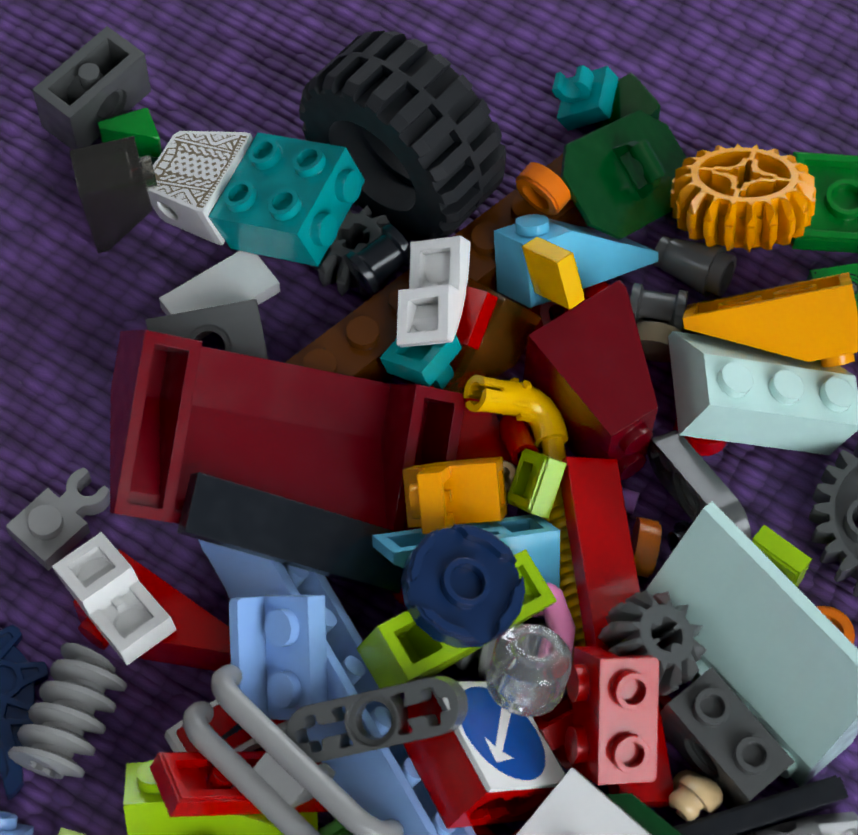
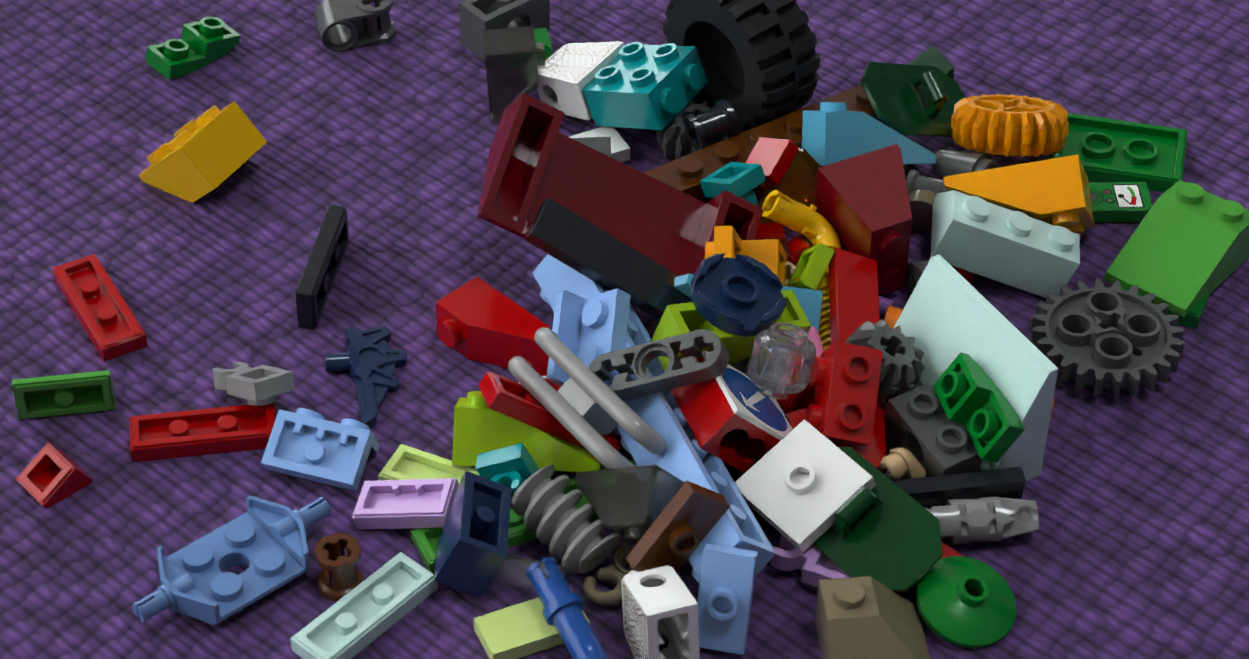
camera: 10 degrees right, 20 degrees down
(56, 524) = (431, 273): light grey plate -> none
(67, 713) = (419, 373): light grey piece -> none
(114, 598) = (467, 299): white slope -> none
(436, 292) = (750, 137): white slope -> none
(543, 188) = (847, 87): orange tile -> none
(553, 272) = (844, 131): yellow tile -> none
(585, 97) = (898, 52): teal tile -> none
(776, 699) = (978, 403): none -> green slope

